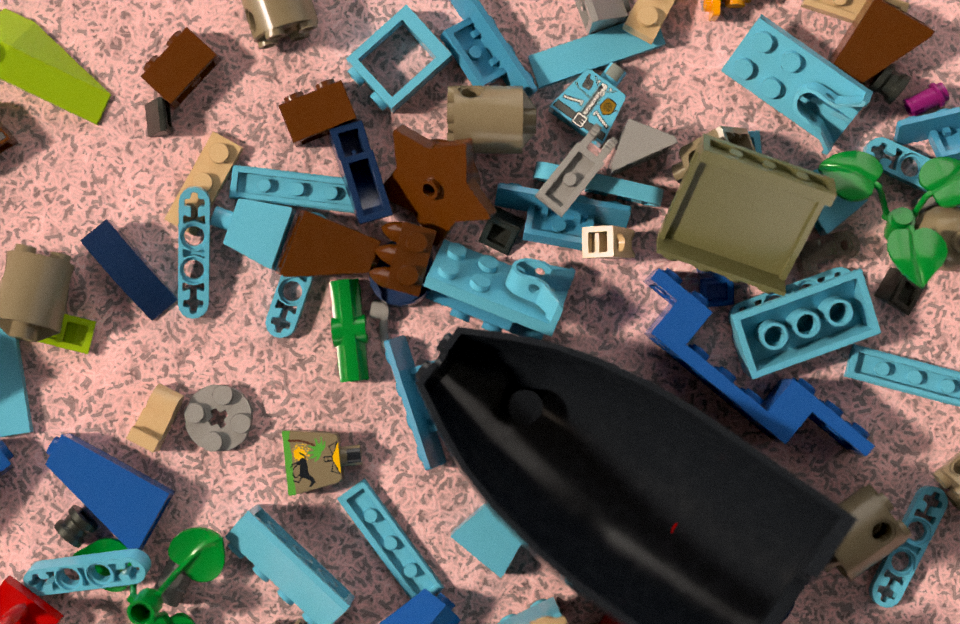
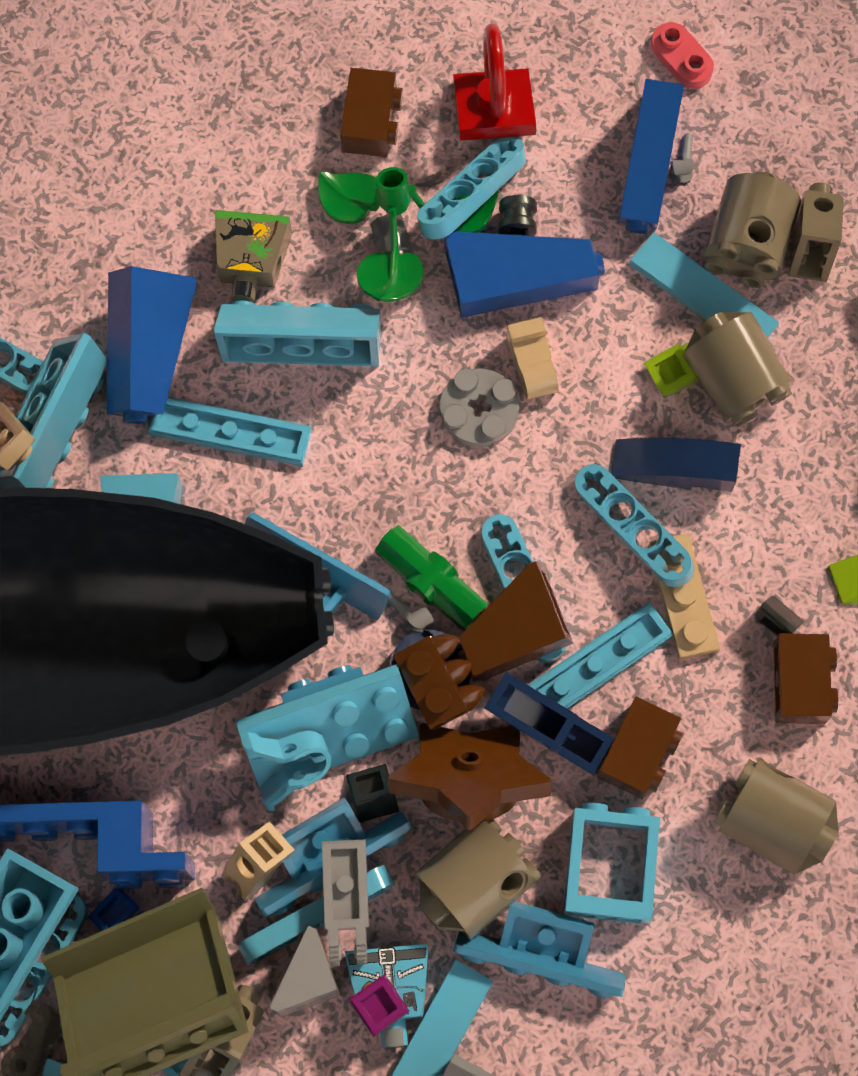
camera: 145 degrees right, 15 degrees down
(255, 229) = (597, 592): medium azure torso -> none
(316, 459) = (360, 442): torso -> none
(609, 94) = (379, 1005): none -> magenta tile

